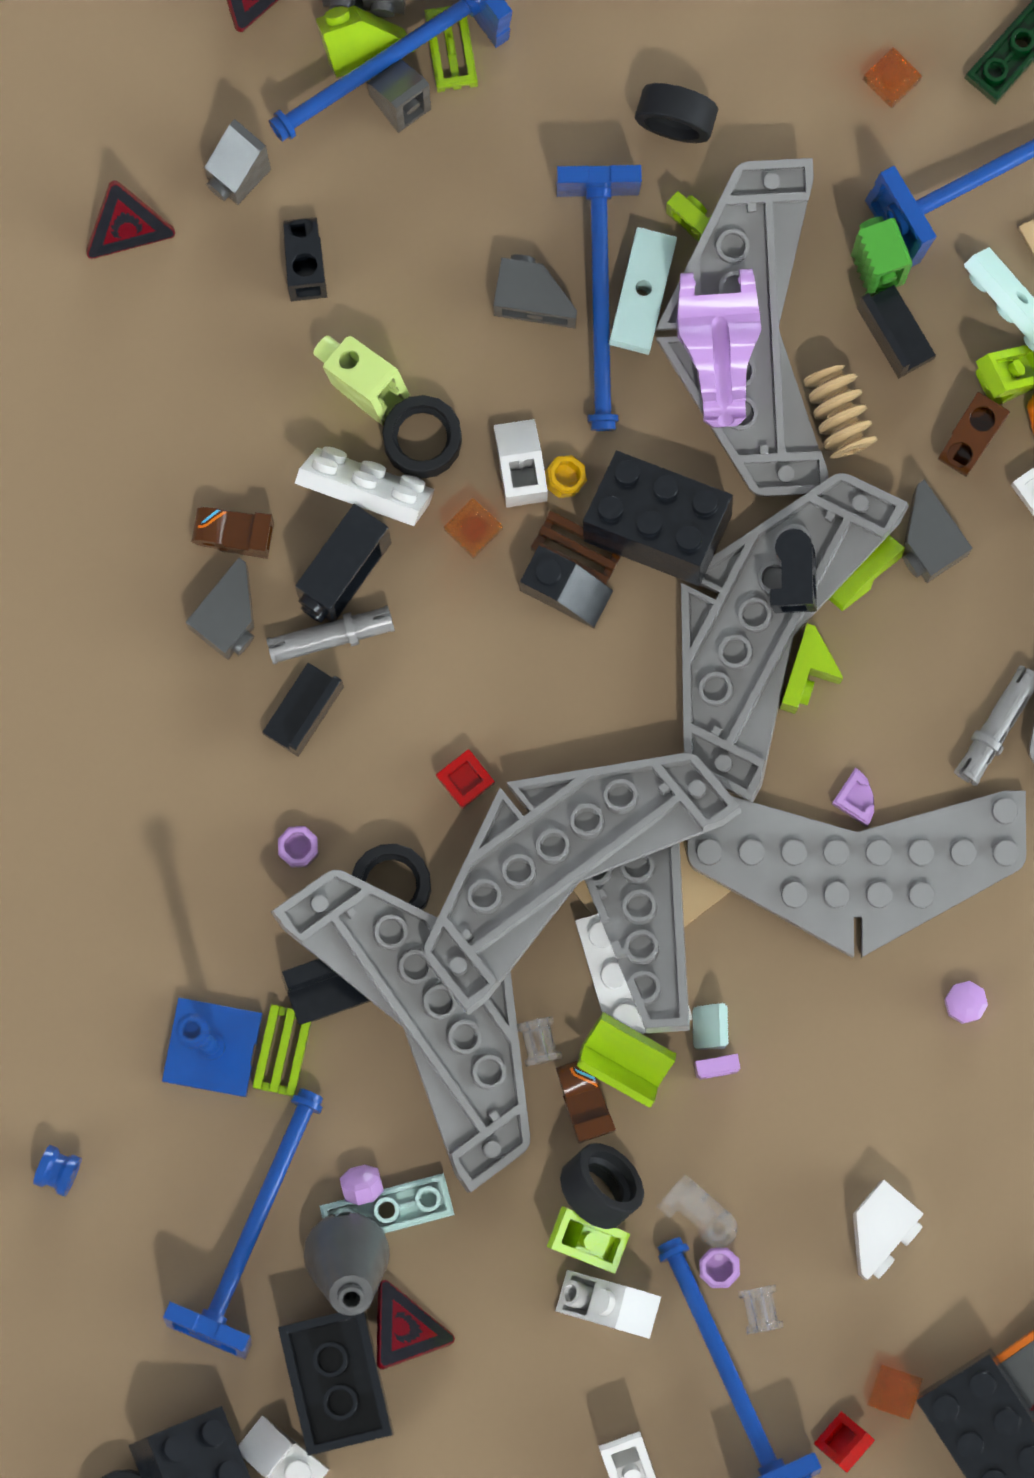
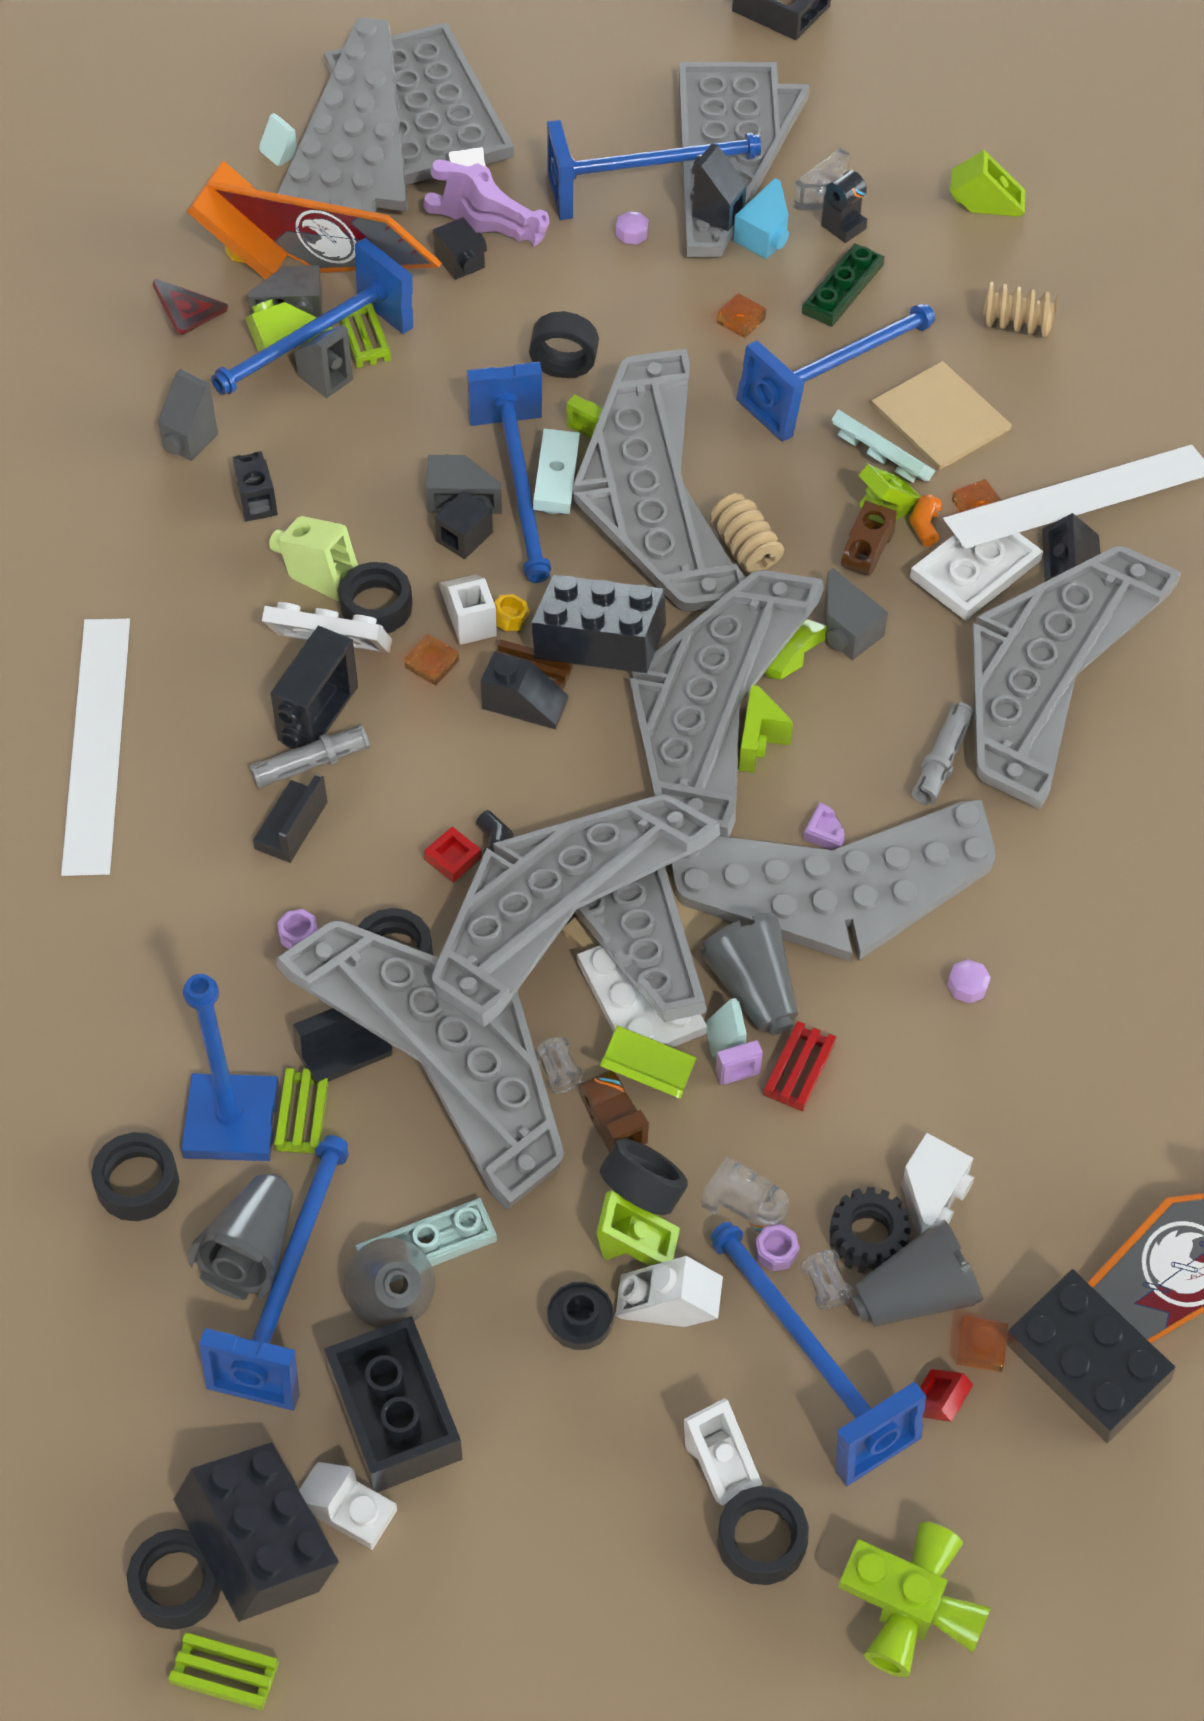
camera: 10 degrees left, 25 degrees down
(57, 1170) = (78, 1246): blue wheel -> none
(90, 1083) = (128, 1147): none -> black tyre
(109, 579) = (96, 748): none -> white sticker
(125, 224) = (90, 474): black piece -> none
(218, 1187) = (245, 1240): none -> dark grey cone
(226, 613) = (207, 749): dark grey slope -> none
(233, 531) = (210, 687): reddish brown leg -> none
(361, 1184) = (396, 1216): lavender tile -> none
(405, 1329) = (459, 1348): black piece -> none
(517, 762) = (493, 828): none -> black arm
(521, 1314) = (580, 1315): none -> black plate
(530, 348) = (463, 524): none -> black brick
(720, 338) = (631, 481): lavender animal -> none
(750, 971) = (755, 971): none -> dark grey cone
(798, 574) = (730, 631): black leg -> none
(798, 1042) = (812, 1038): none -> red tile
(838, 1269) = (868, 1206): none -> black tyre
(846, 1329) = (918, 1280): none -> dark grey cone
(881, 255) = (759, 419): bright green brick -> none
(895, 331) = (781, 479): black panel -> none

